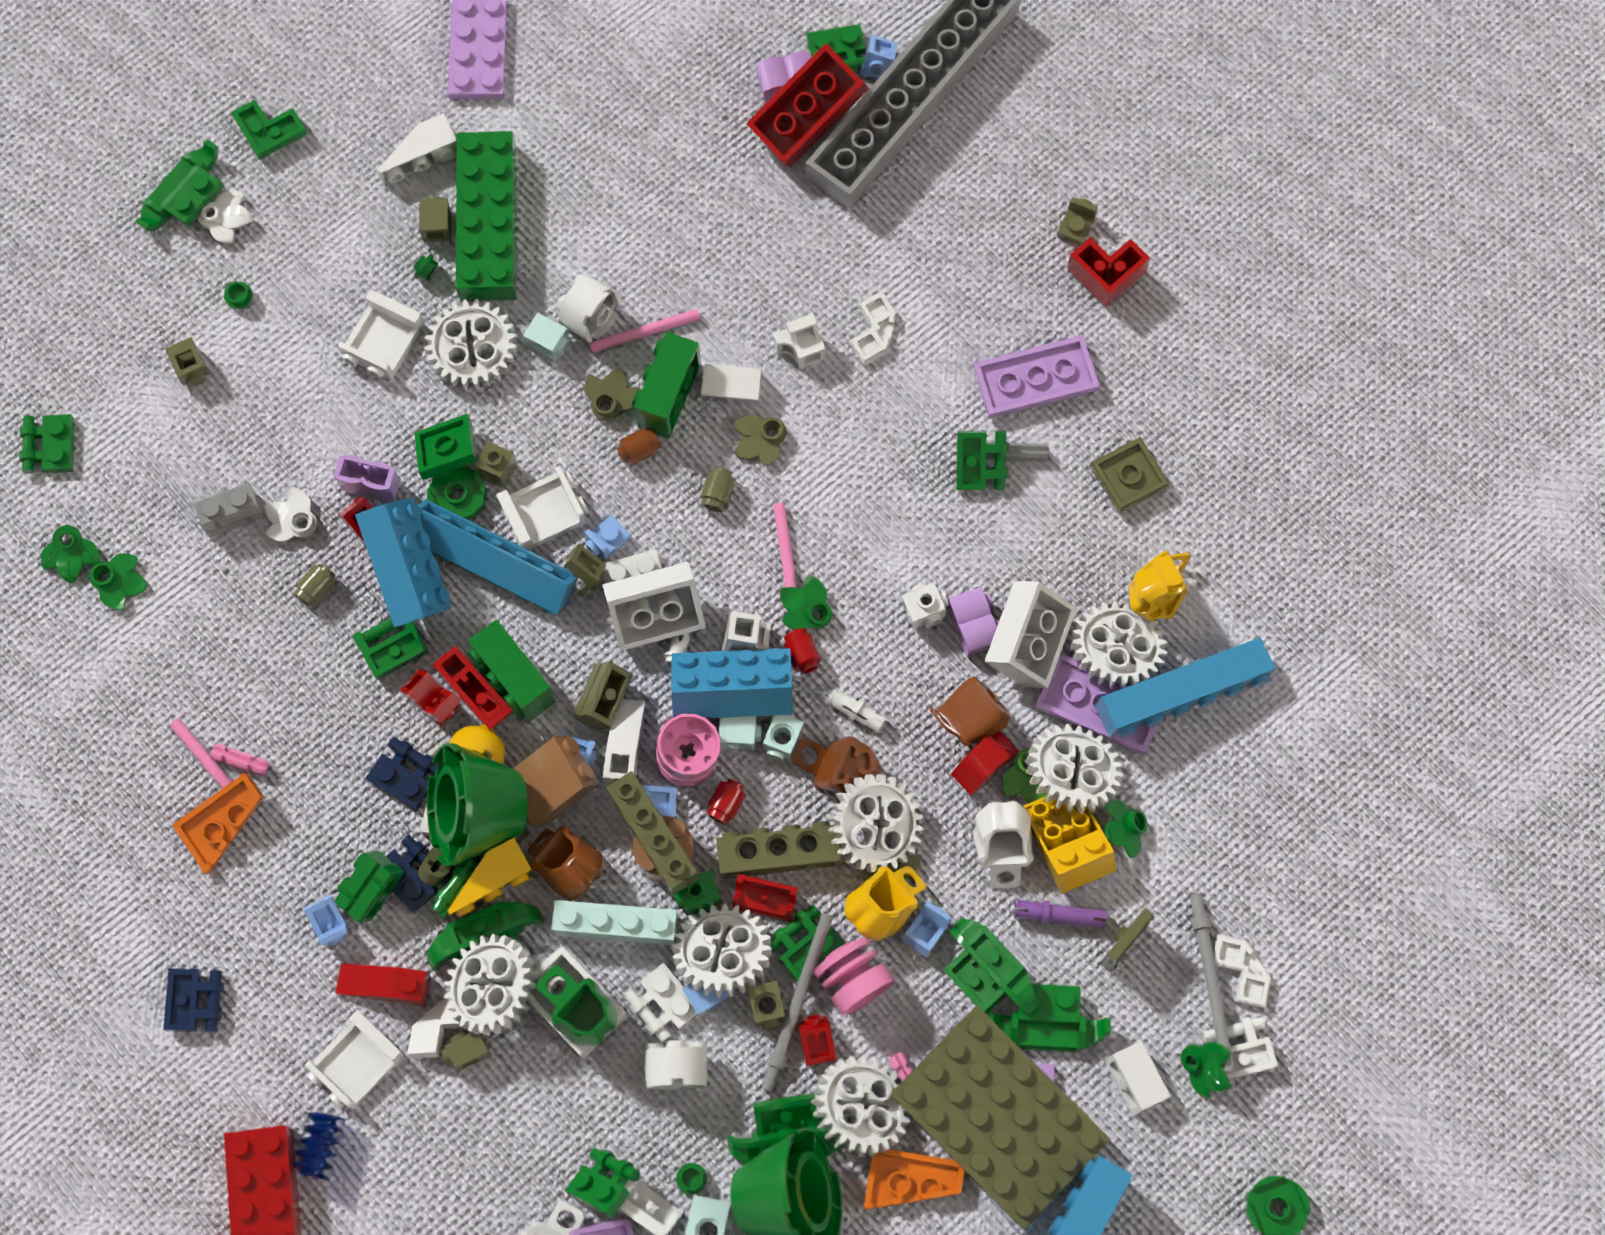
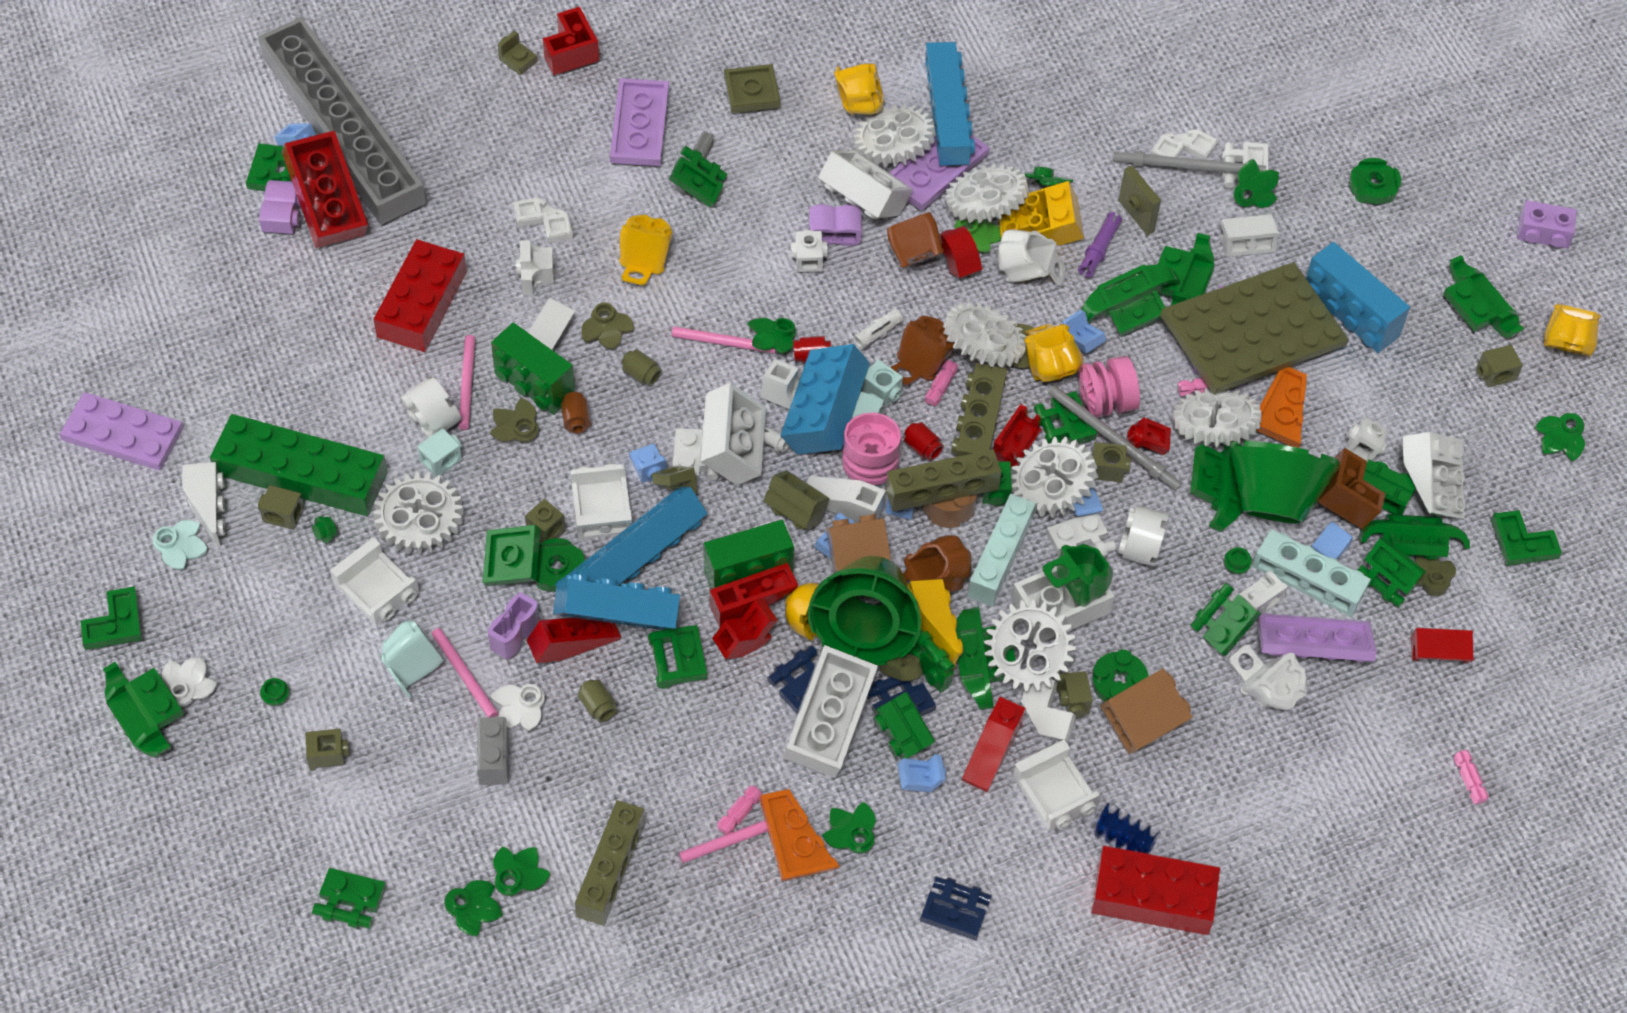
camera: 75 degrees left, 15 degrees down
(142, 658) = (610, 863): none -> olive brick
(252, 868) = (849, 826): none -> green plate
(303, 394) = (409, 655): none -> light aqua piece
(312, 454) = (464, 673): none -> bright pink bar
(358, 807) = (829, 711): none -> white brick
(368, 152) = (182, 546): none -> light aqua plate
(464, 1128) = (1146, 711): none -> medium nougat brick
(505, 1109) = (1116, 663): none -> green plate
(725, 247) = (420, 295): none -> red brick
(809, 797) = (941, 383): none -> bright pink axle
(869, 438) = (644, 247): none -> yellow piece

